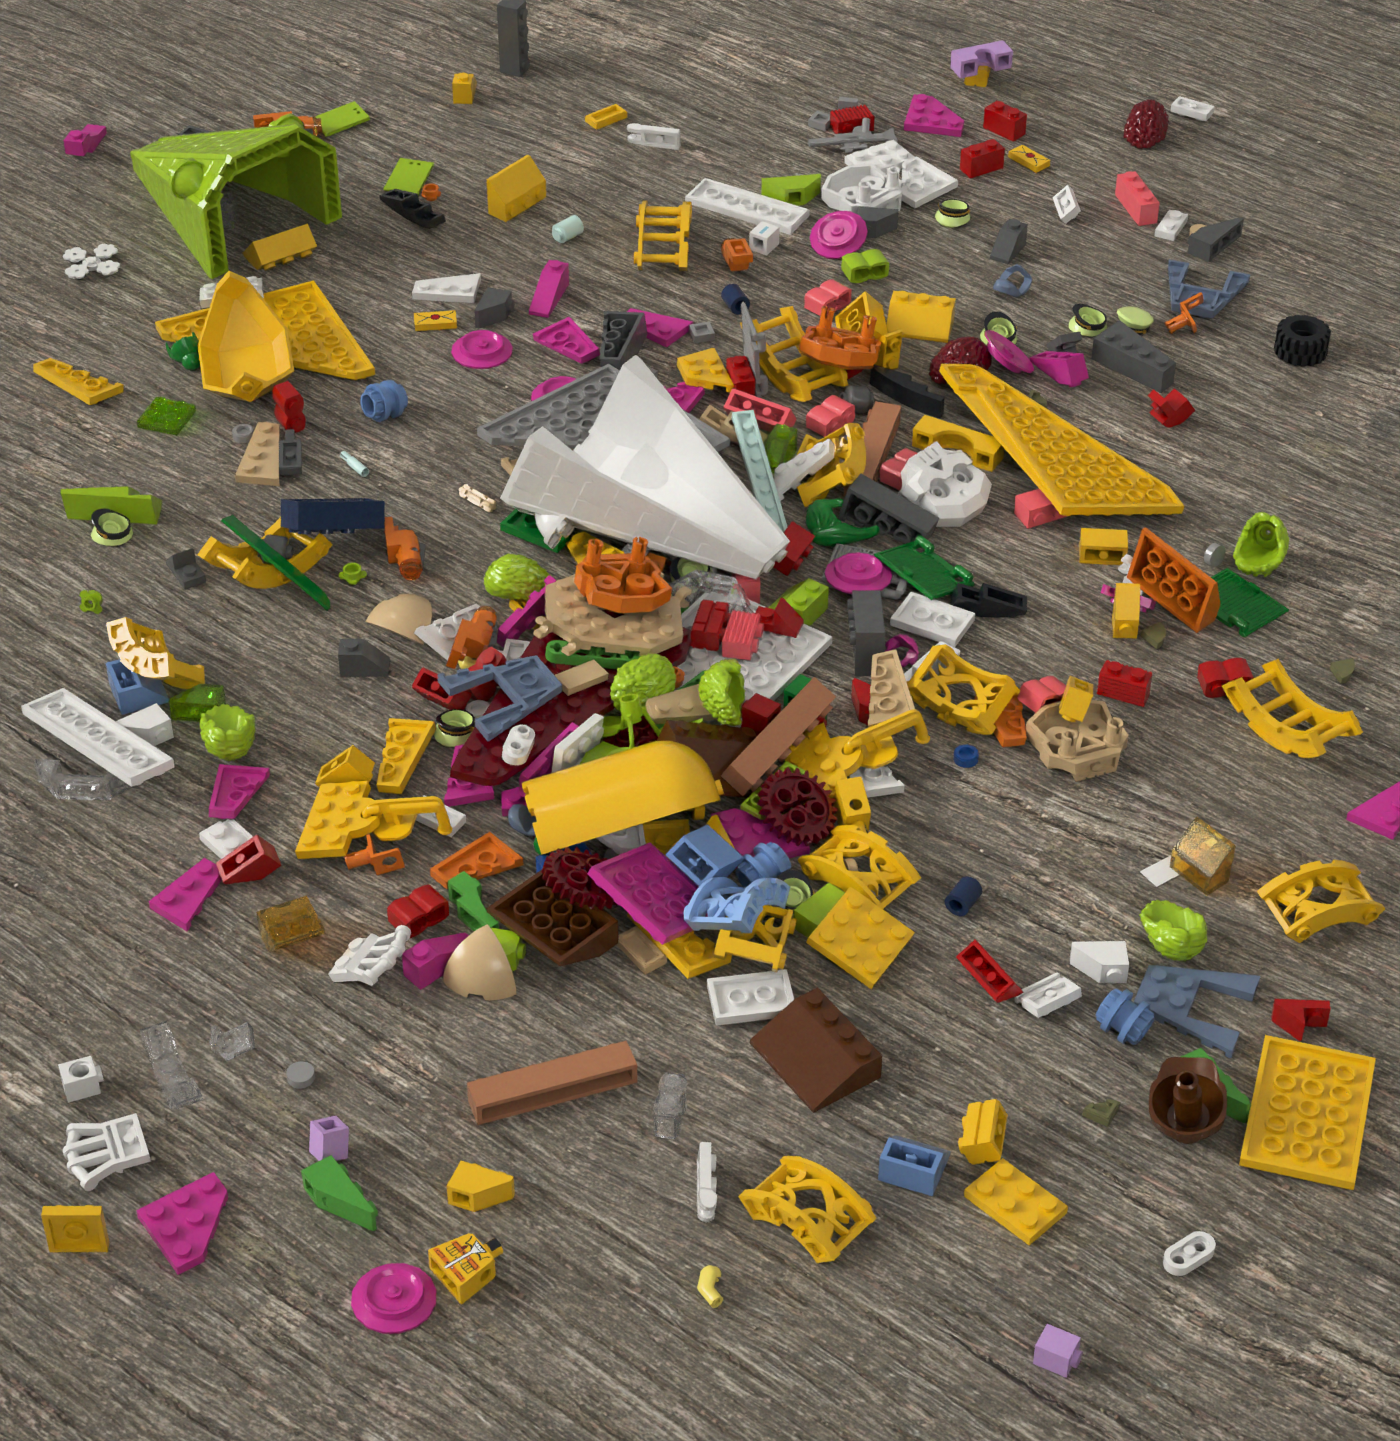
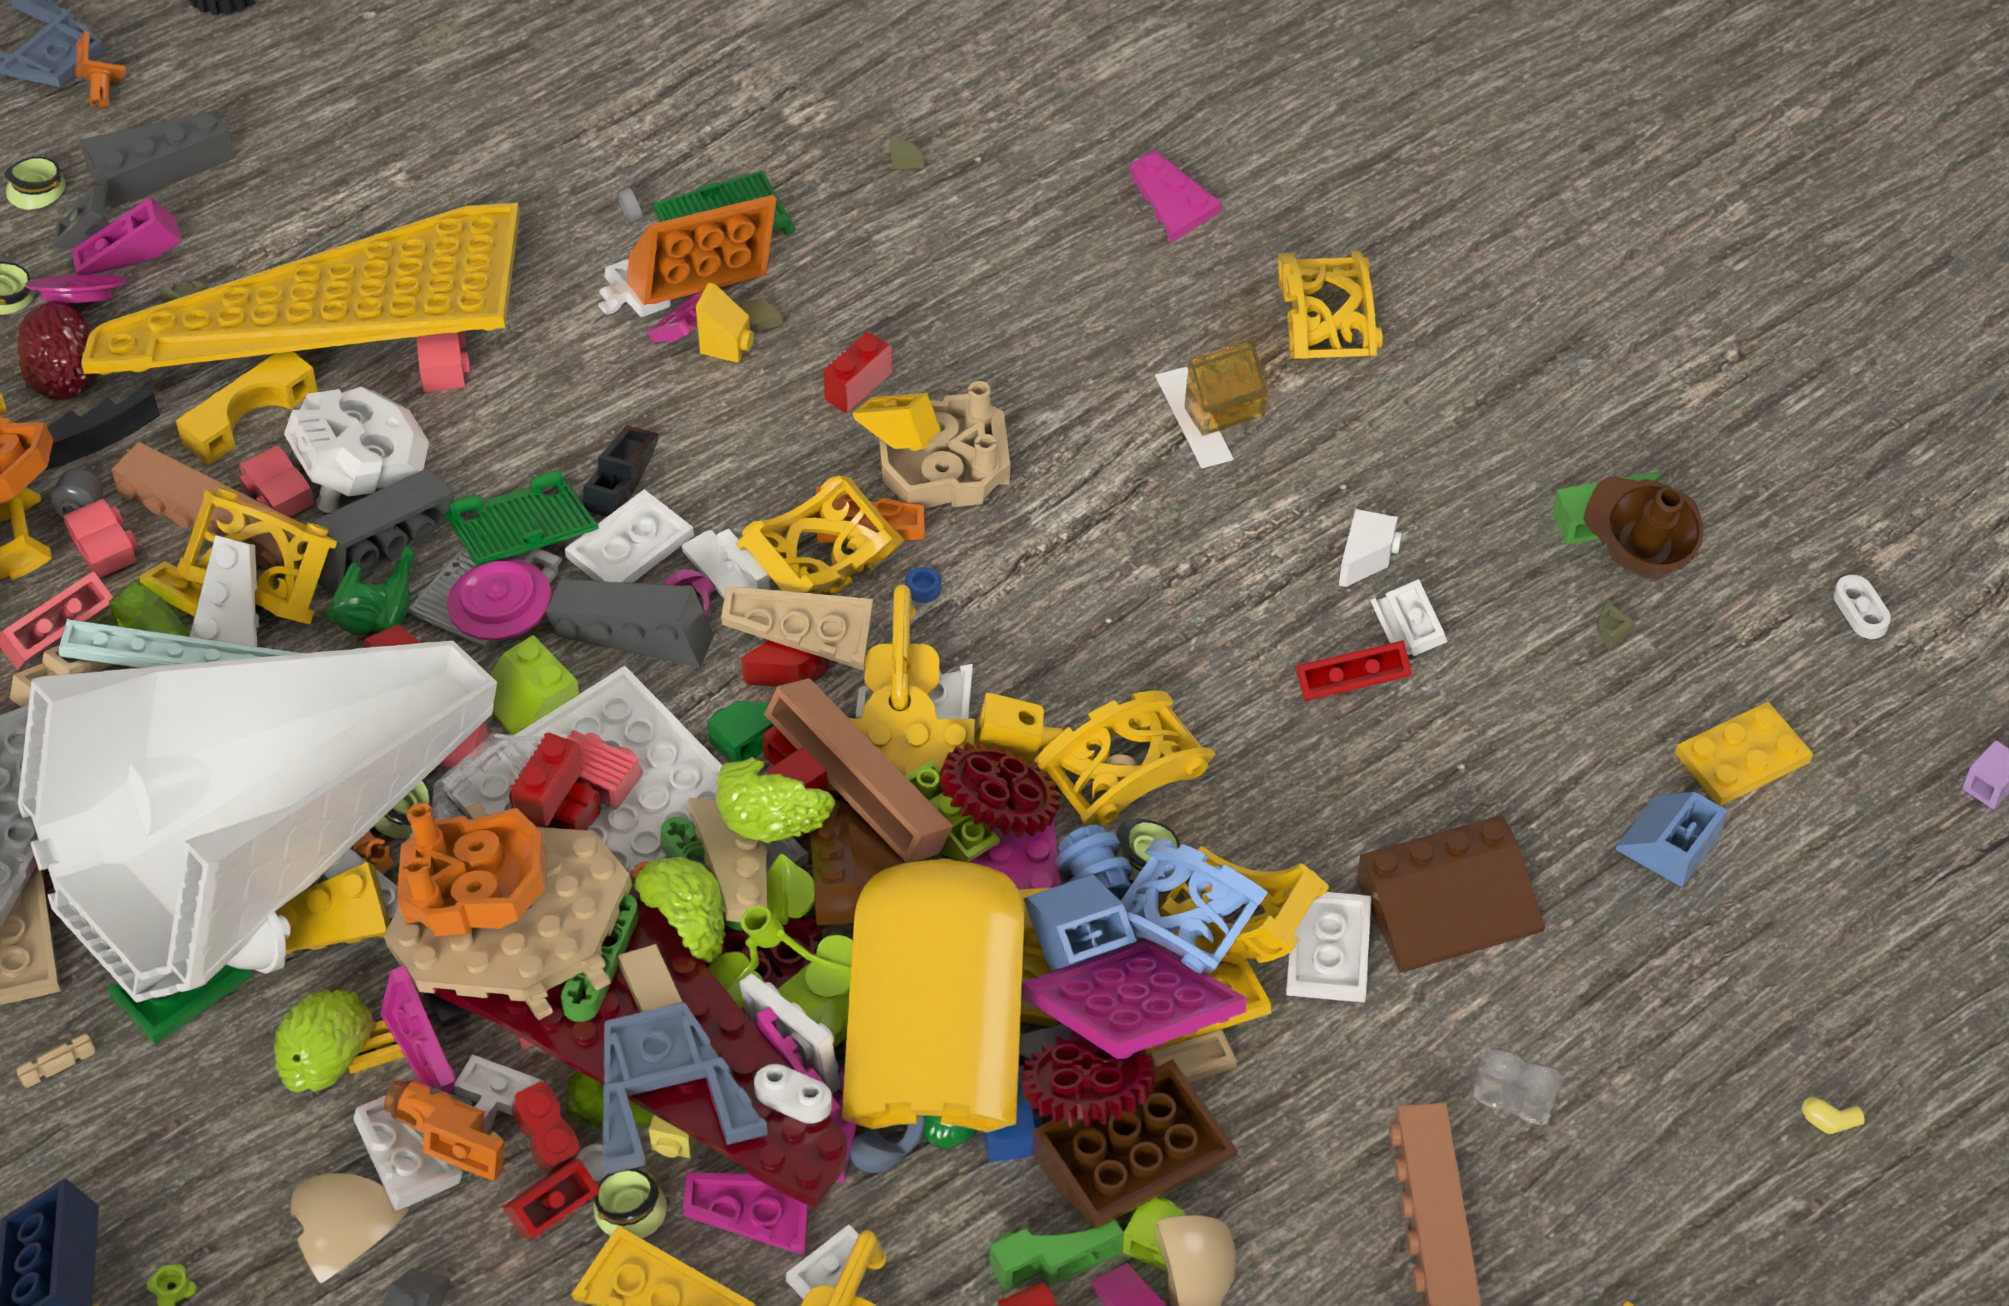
camera: 75 degrees left, 10 degrees up
(404, 549) = (149, 1189): orange plate -> none
(478, 859) = (950, 1233): orange wing -> none
(706, 1183) = (1660, 1078): white hinge -> none
(707, 602) = (547, 778): none -> red brick
(769, 1204) = (1740, 925): yellow fence -> none
(781, 620) = (574, 711): red slope -> none
(816, 908) = (1194, 816): lime brick -> none
(860, 937) = (1261, 788): yellow plate -> none
(963, 896) = (1206, 657): dark blue brick -> none
(983, 1132) = (1639, 749): yellow brick -> none
(1042, 692) = (851, 456): coral brick -> none
(1102, 546) = (559, 312): yellow brick -> none
(1126, 1017) = (1478, 550): medium blue piece -> none
(1135, 318) = (61, 134): yellowish green piece -> none
(1170, 410) = (297, 151): red brick -> none
(1173, 992) = (1439, 505): sand blue wing -> none
(1174, 930) = (1348, 453): lime hair -> none
(1217, 673) = (882, 269): red brick -> none
(1258, 549) = (654, 147): lime hair -> none
(1280, 734) = (998, 254): yellow fence -> none
(1295, 1014) = (1512, 390): red slope -> none
(1308, 1112) = (1655, 420): yellow plate -> none

